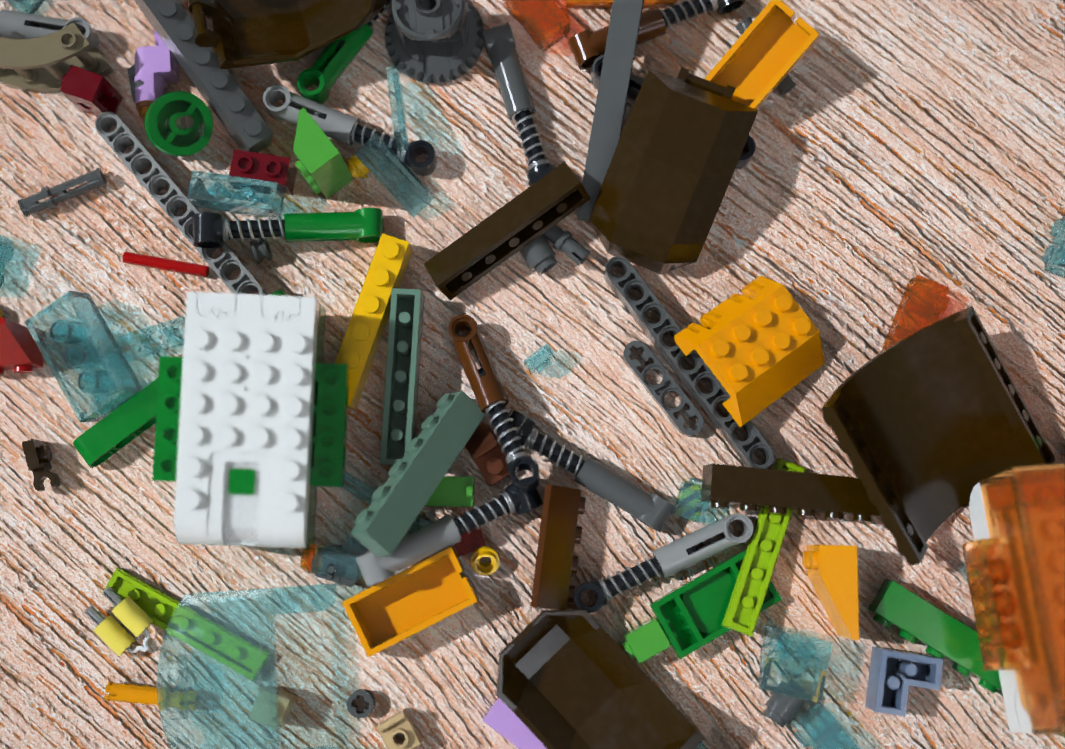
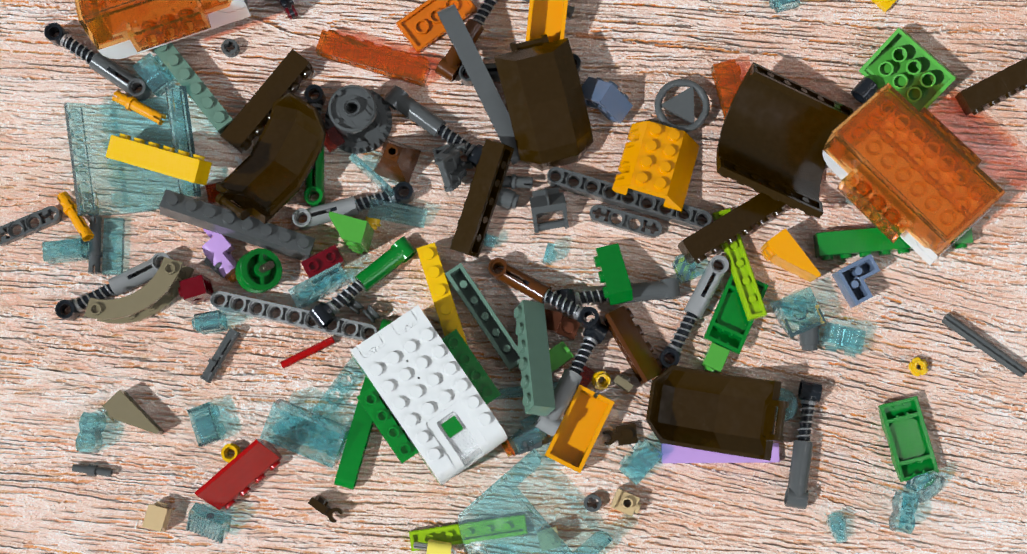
camera: 35 degrees left, 0 degrees up
(76, 143) = (210, 322): none -> clear light blue brick
(273, 273) = (371, 314): none -> dark grey bush
(383, 33) = (333, 139): none -> clear red plate
(441, 114) = (396, 161): none -> reddish brown slope
(456, 698) = (640, 461): none -> clear light blue brick
(463, 650) = (624, 434): none -> dark brown plate
(481, 291) = (491, 241): none -> clear light blue plate
(500, 164) = (450, 164): none -> dark grey piece
(510, 584) = (623, 382): none -> dark tan plate
(583, 295) = (548, 202): none -> dark grey piece
(596, 442) = (613, 274): none -> green brick
(751, 221) = (606, 99): none -> sand blue brick
(840, 297) = (682, 104): none -> dark grey piece

